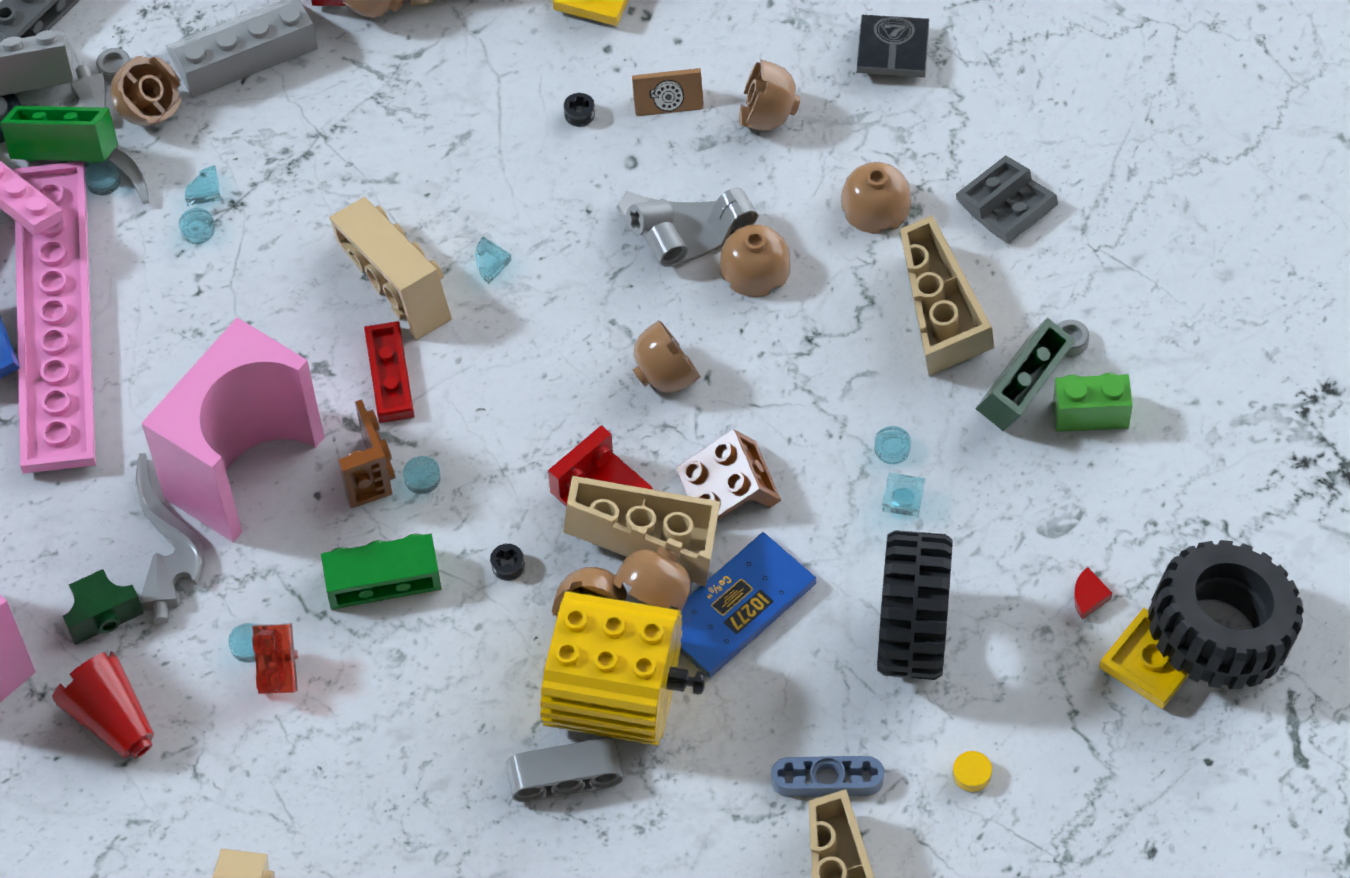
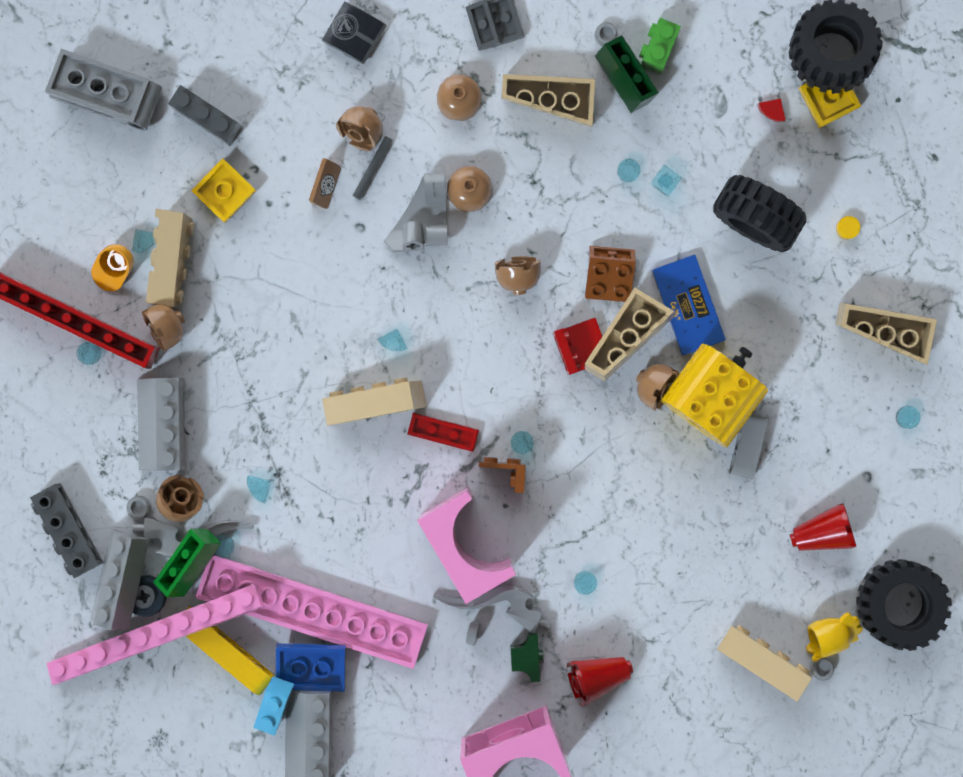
camera: 65 degrees left, 30 degrees up
(105, 522) = (472, 633): none -> light grey tile
(196, 225) = (286, 503): clear light blue tile -> none
(275, 658) = (612, 574): clear red hips -> none
(380, 571) = (577, 492): green brick -> none
(508, 571) = (608, 420): black bush -> none
(579, 118) = (315, 238): black bush -> none
(655, 578) = (669, 347): medium nougat cylinder -> none
(721, 141) = (372, 168): none -> dark grey bar
(815, 764) = (816, 287): sand blue beam -> none

